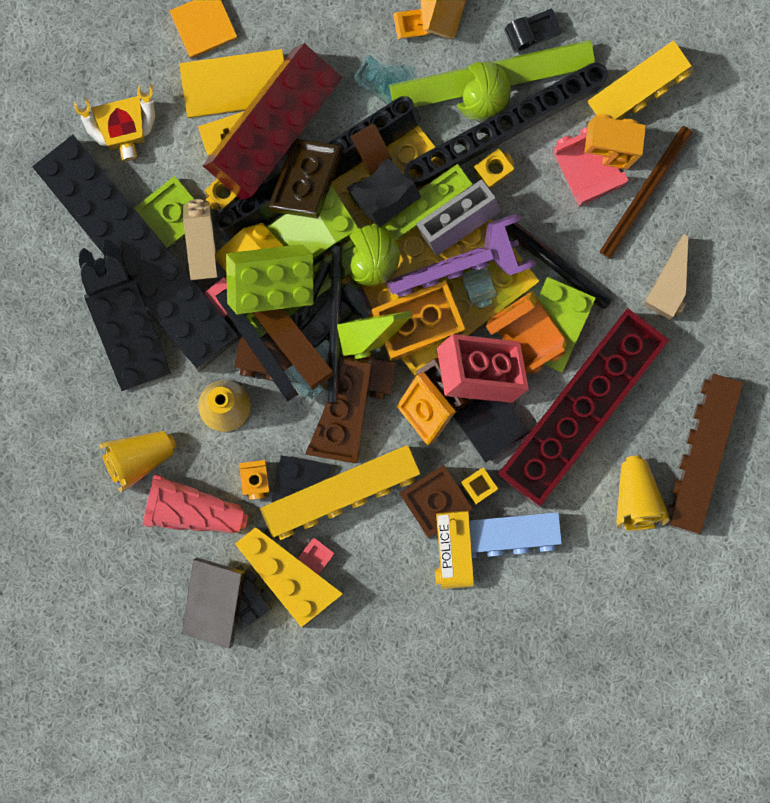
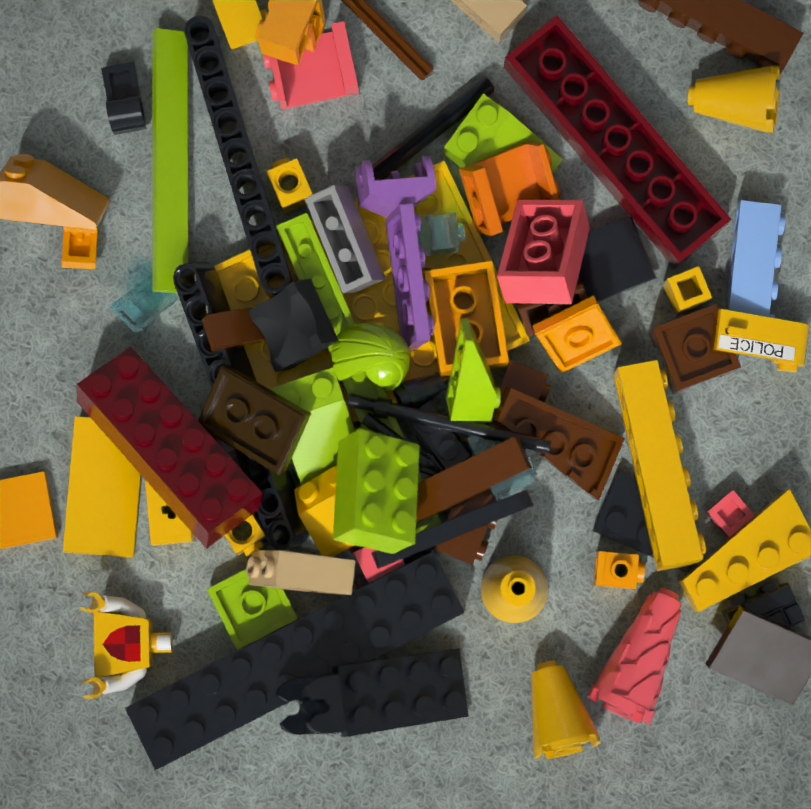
camera: 70 degrees left, 0 degrees up
(486, 93) = (195, 170): lime hair -> none

